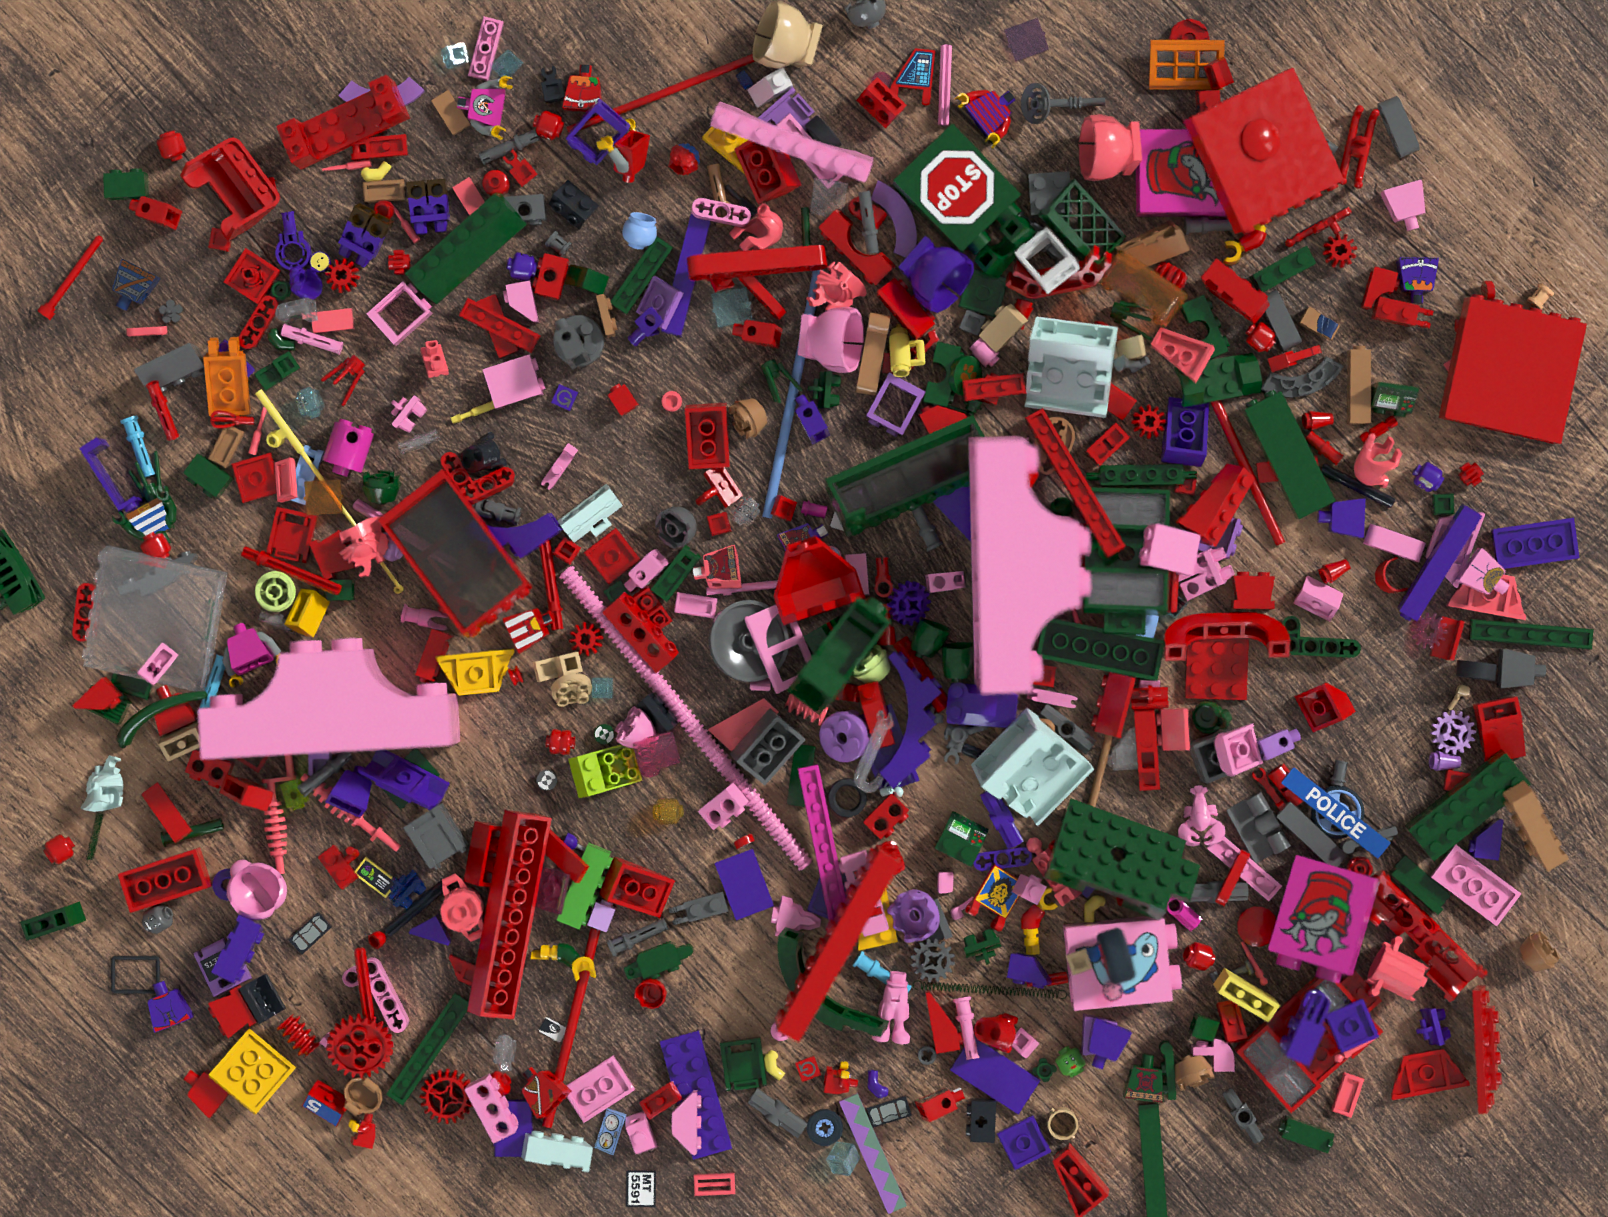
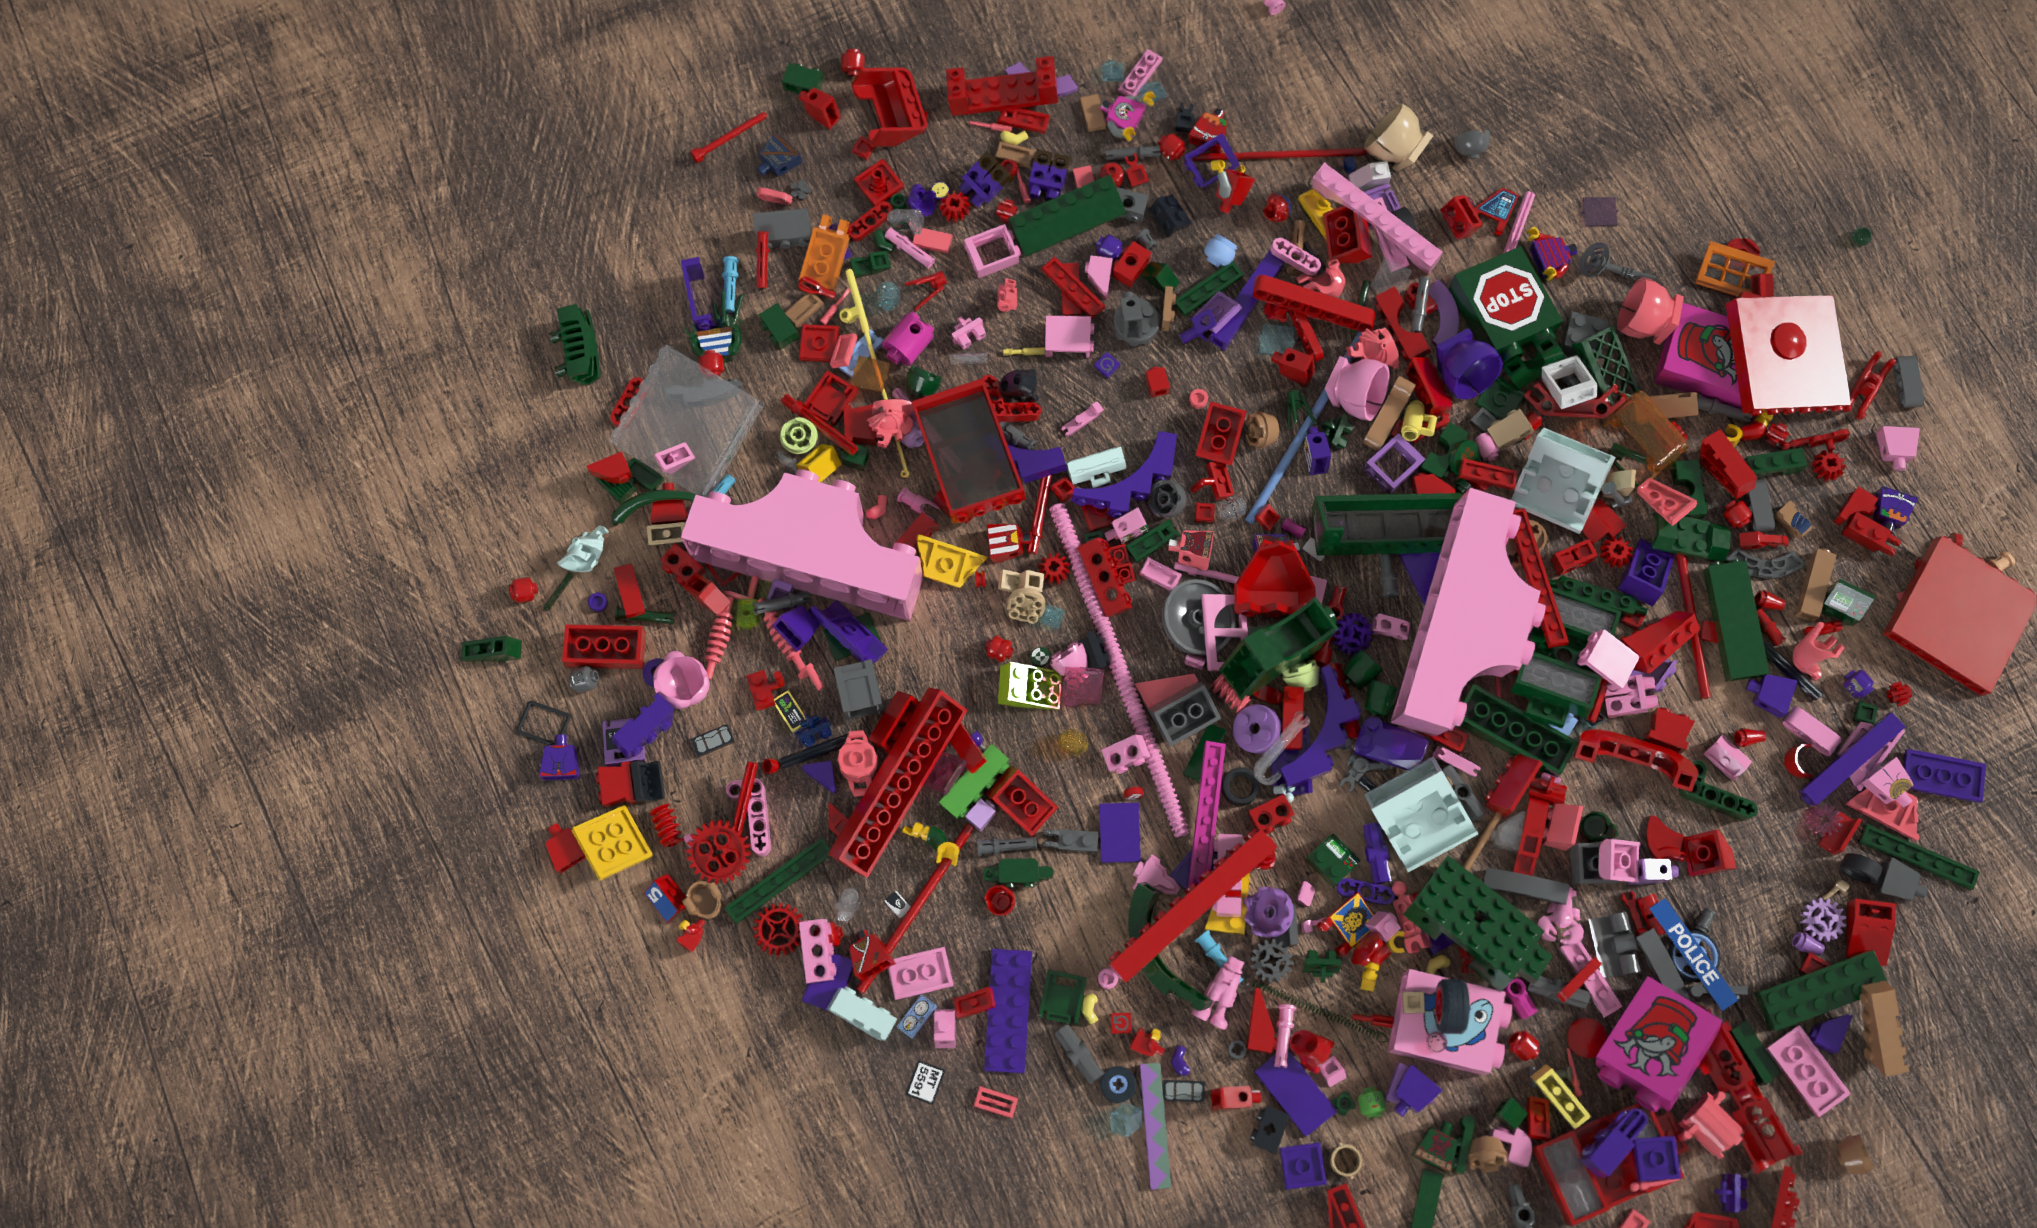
camera: 20 degrees right, 15 degrees down
(139, 833) = (597, 602): none -> dark purple tile
(248, 651) = (753, 478): dark pink torso -> none
(290, 228) = (924, 158): dark purple pin -> none
(386, 636) = (878, 510): none -> coral arm
(547, 780) = (974, 679): tile -> none
(625, 543) = (1138, 485): none -> dark purple arch
(686, 1122) = (992, 1029): bright pink slope -> none
(1018, 918) = (1365, 949): none -> red dish
(1027, 969) = (1357, 999): dark purple slope -> none
(1130, 386) = (1609, 517): none -> red tile
(1156, 800) = (1527, 886): none -> dark grey slope
(1217, 669) = (1616, 788): red plate -> none
(1277, 234) = (1776, 434): none -> red gear
(1278, 706) = (1663, 842): none -> red arm

